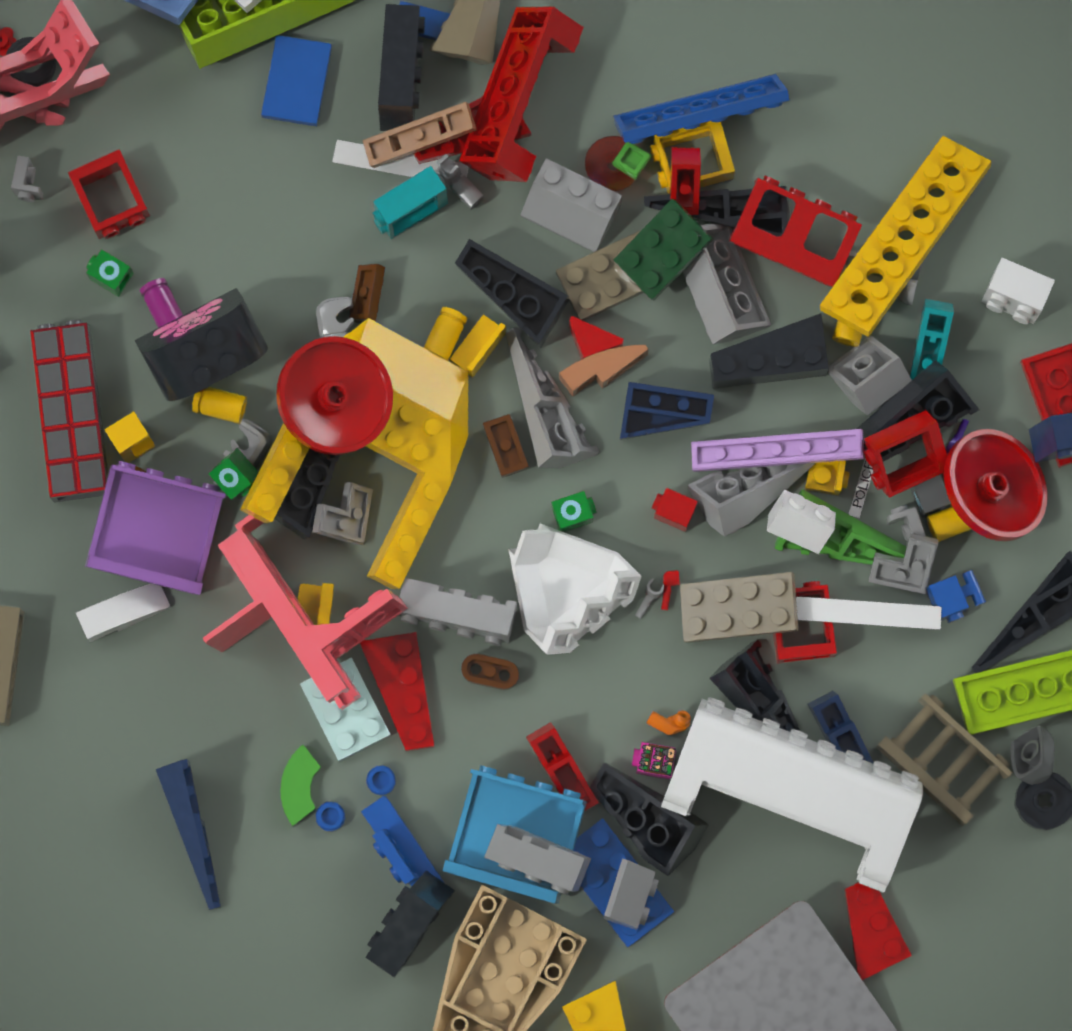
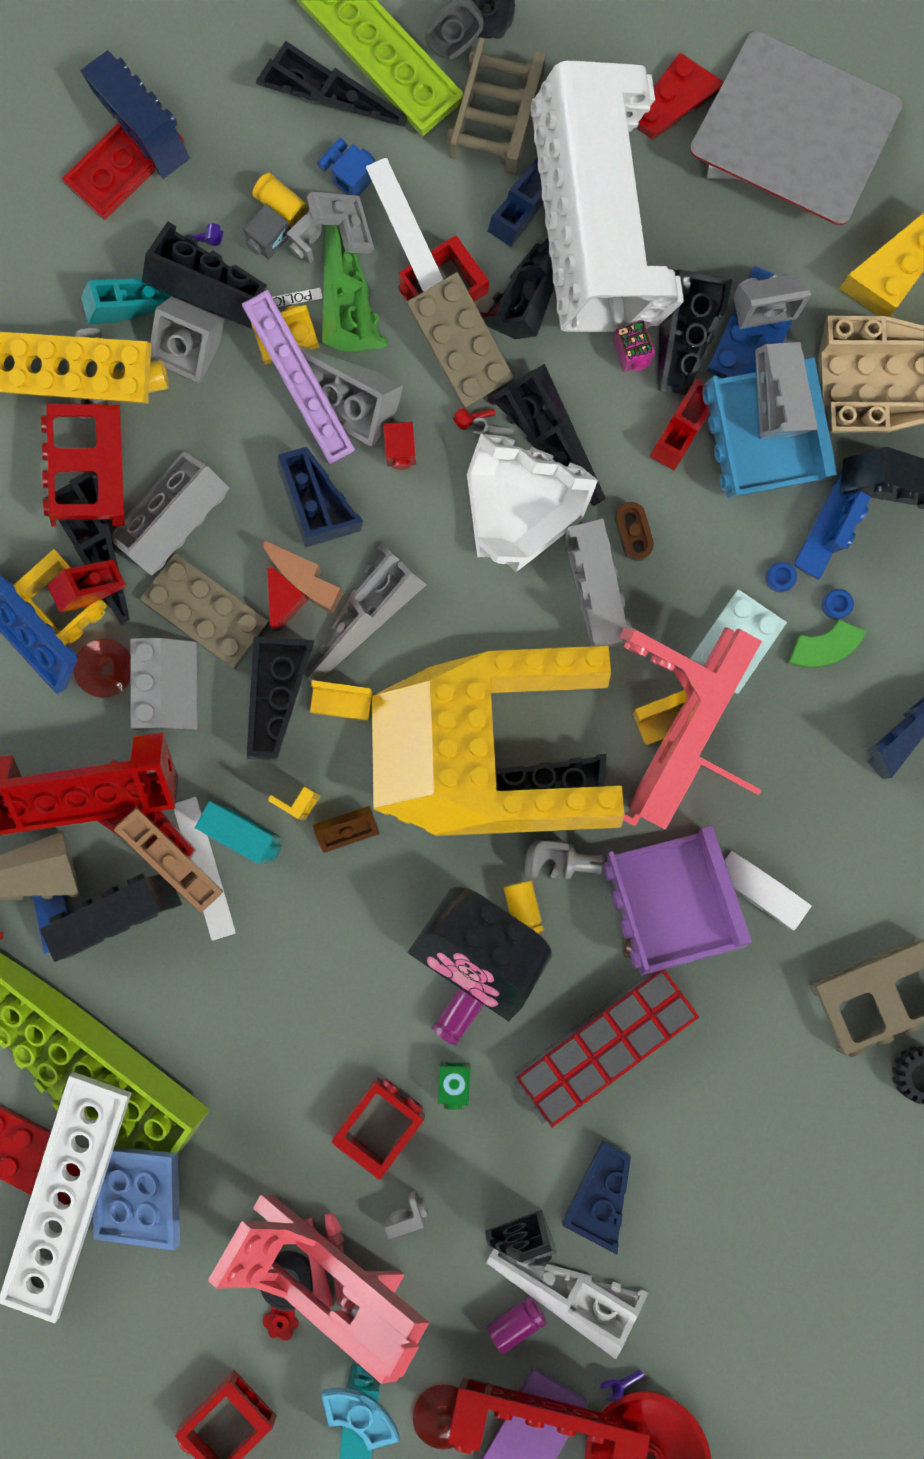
camera: 120 degrees left, 5 degrees up
(130, 437) = (603, 973): yellow panel -> none
(234, 474) = (587, 853): green brick -> none
(296, 80) = (173, 1010): blue tile -> none
(327, 313) = (400, 843): light grey piece -> none
(334, 395) = (474, 787): red dish -> none
(349, 520) = (565, 727): light grey tile -> none
(400, 679) = (687, 604): red wing -> none
(405, 256) = (302, 806): none -> yellow panel
(445, 332) = (346, 736): yellow piece -> none
(450, 175) = (197, 796): light grey bar -> none
(505, 445) = (421, 626): reddish brown plate -> none
(573, 511) = (450, 533): green brick -> none
(631, 160) = (91, 650): bright green tile -> none
(644, 648) = (540, 414): none -> black wedge
(663, 249) = (163, 572): dark green plate -> none
(672, 724) = (593, 352): orange arm -> none
(779, 355) = (207, 423): black wedge -> none
(801, 521) = (354, 321): white brick -> none
(916, 472) = (216, 253): red window -> none
(995, 485) = (230, 172): red dish -> none
(1017, 291) = (39, 241): white brick -> none

